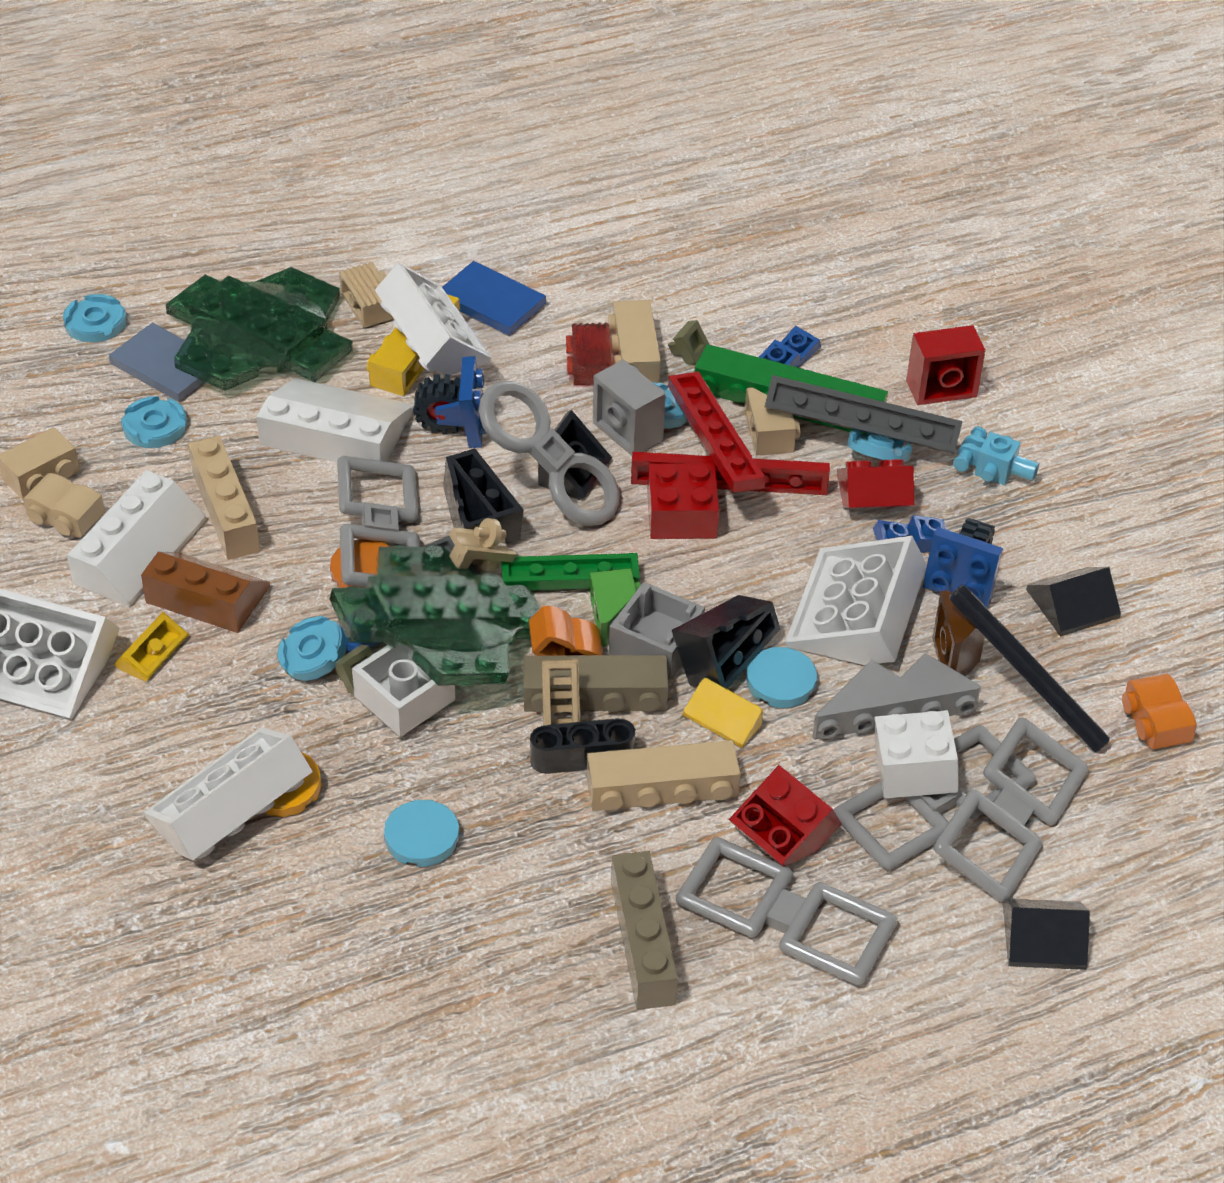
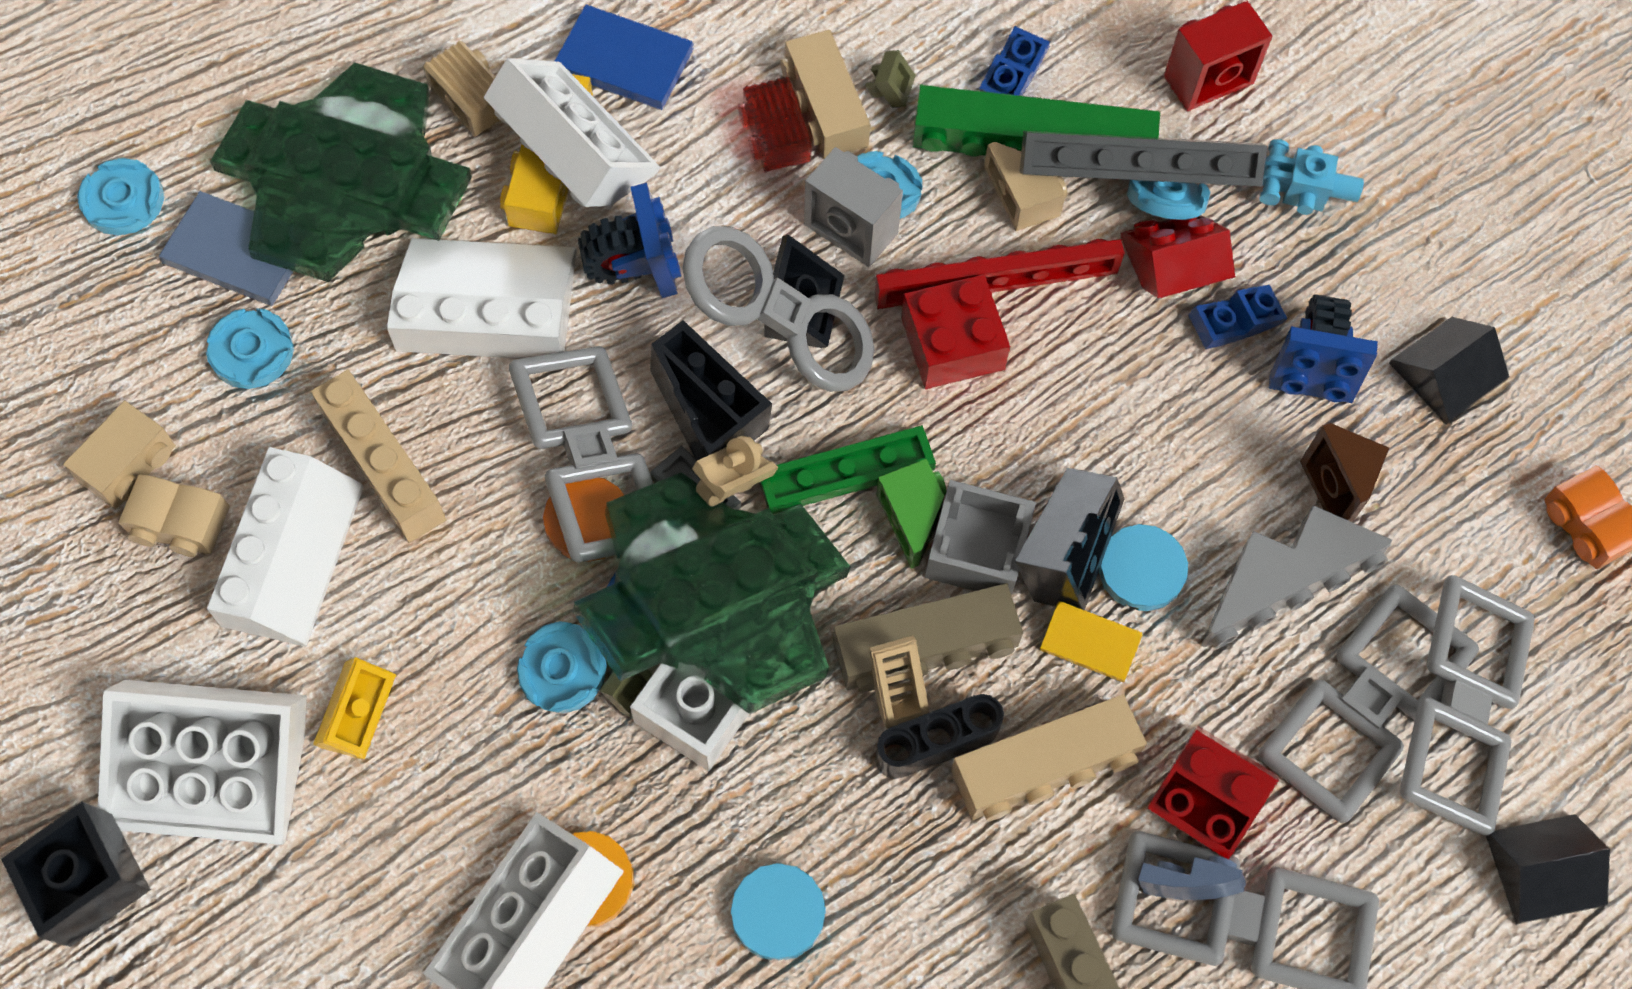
camera: 15 degrees left, 20 degrees up
(202, 590) = (395, 601): dark orange slope -> none
(559, 634) = (875, 583): orange brick -> none
(716, 432) = (974, 226): red plate -> none
(754, 872) = (1207, 880): none -> sand blue slope
(859, 600) = (1204, 435): white slope -> none
(916, 754) = (1345, 662): white brick -> none
(1029, 668) = (1446, 506): black axle -> none

